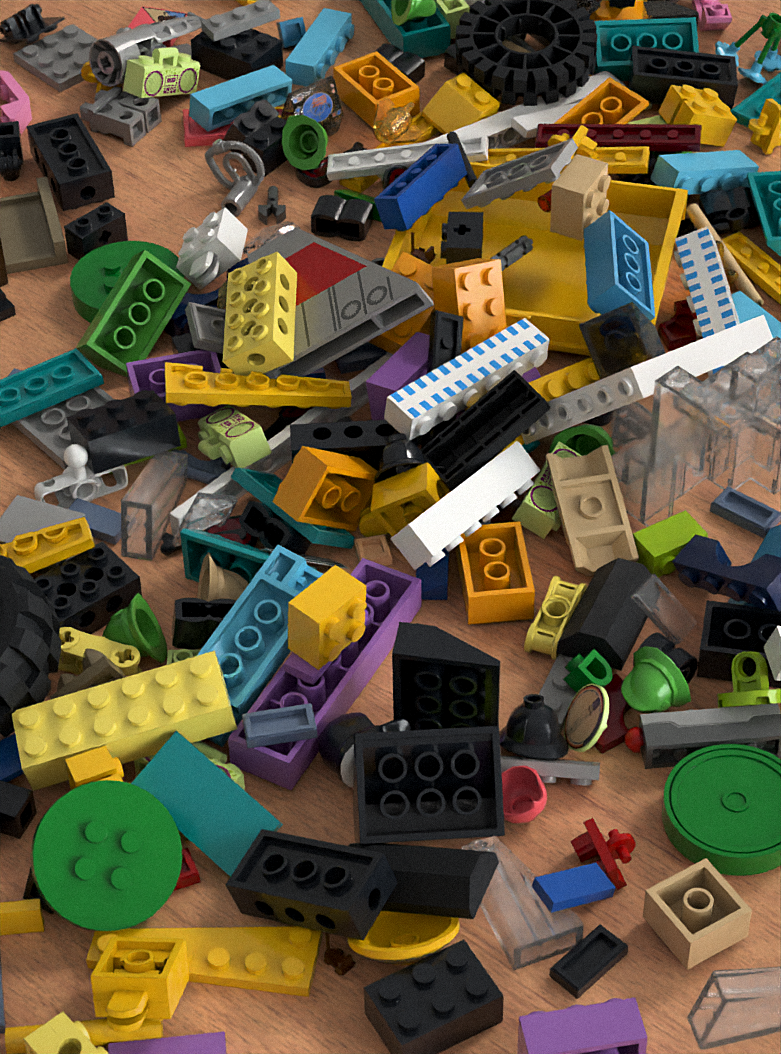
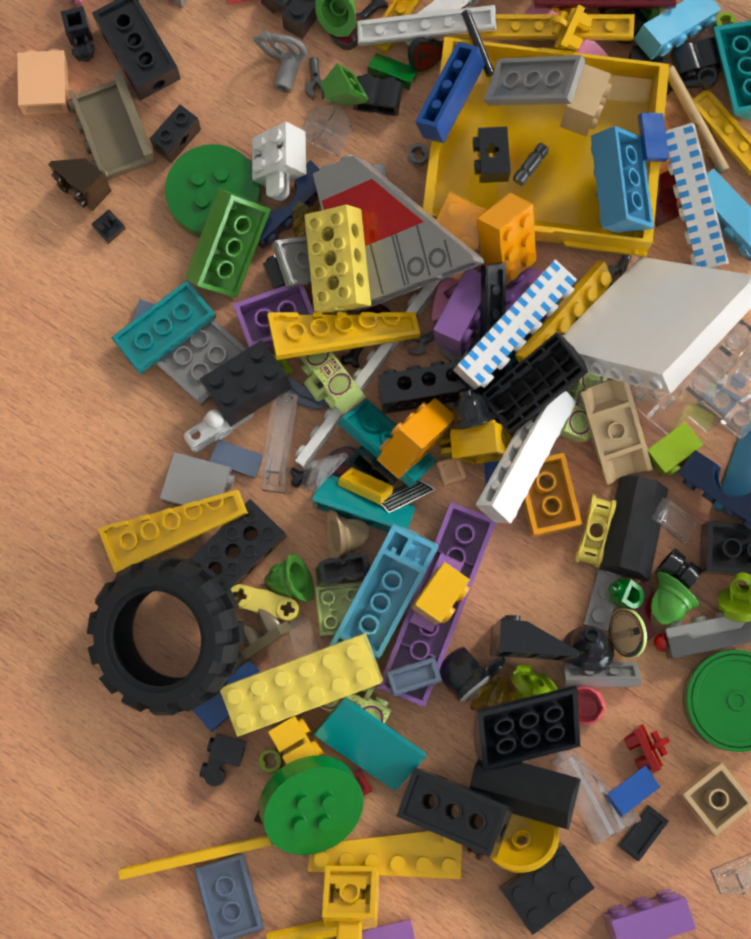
camera: 10 degrees left, 35 degrees up
(253, 537) = (365, 485): none -> yellow tile
(299, 202) = (343, 87): none -> bright green slope
(427, 256) = (454, 165): reddish brown piece -> none
(621, 339) = (629, 259): clear smoke slope -> none
(661, 240) = (653, 137): none -> blue tile

